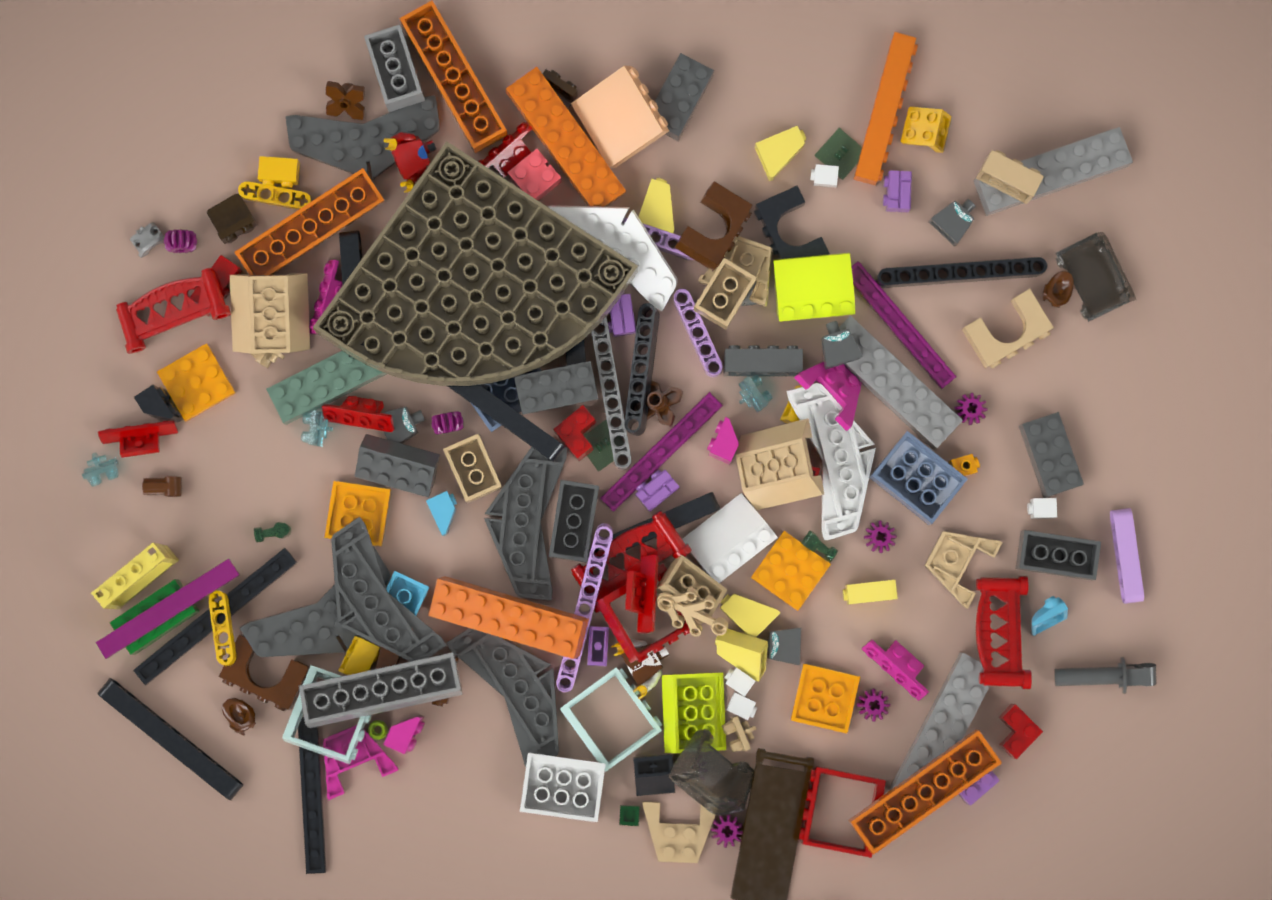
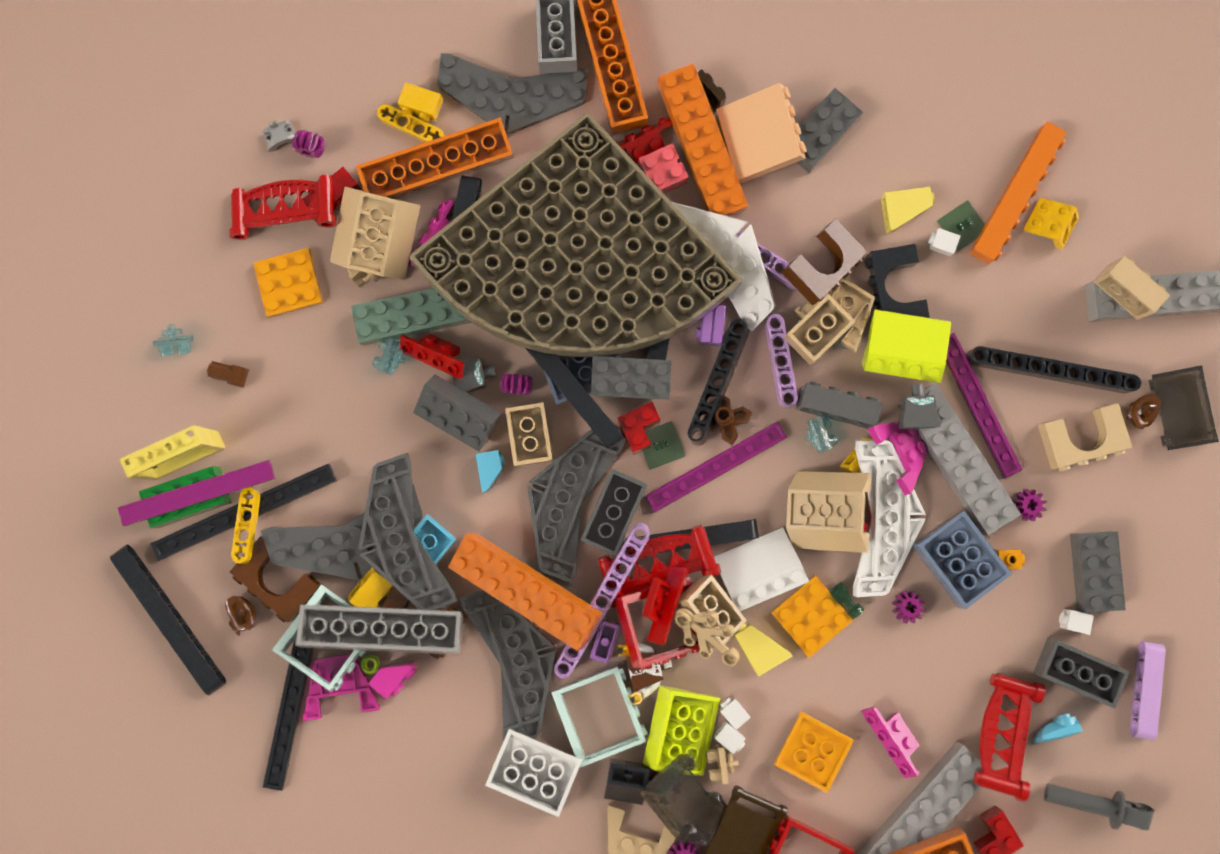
camera: 20 degrees right, 0 degrees up
(138, 439) = (218, 322): red bracket -> none
(155, 403) = (243, 292): black slope -> none
(231, 218) = (363, 136): dark brown bracket -> none
(279, 530) = (328, 445): clear green leg -> none
(345, 99) = (501, 50): reddish brown plant -> none
(354, 501) = (410, 437): light orange plate -> none
(410, 156) = (548, 118): red torso -> none
(614, 393) = (685, 399): light grey beam -> none
(629, 815) = (591, 815): dark green plate -> none
(656, 490) = (701, 503): medium lavender brick -> none
(658, 206) = (774, 229): light yellow slope -> none
(725, 444) = (781, 475): dark pink slope -> none
(743, 652) = (746, 686): light yellow slope -> none
(785, 645) = (786, 688): dark grey torso -> none
(866, 706) = (867, 768): magenta gear -> none
(870, 592) = (887, 659): light yellow slope -> none
(898, 191) = (1010, 275): medium lavender brick -> none
(951, 559) = (973, 646): tan wing -> none
(954, 220) = (1058, 318): dark grey torso -> none

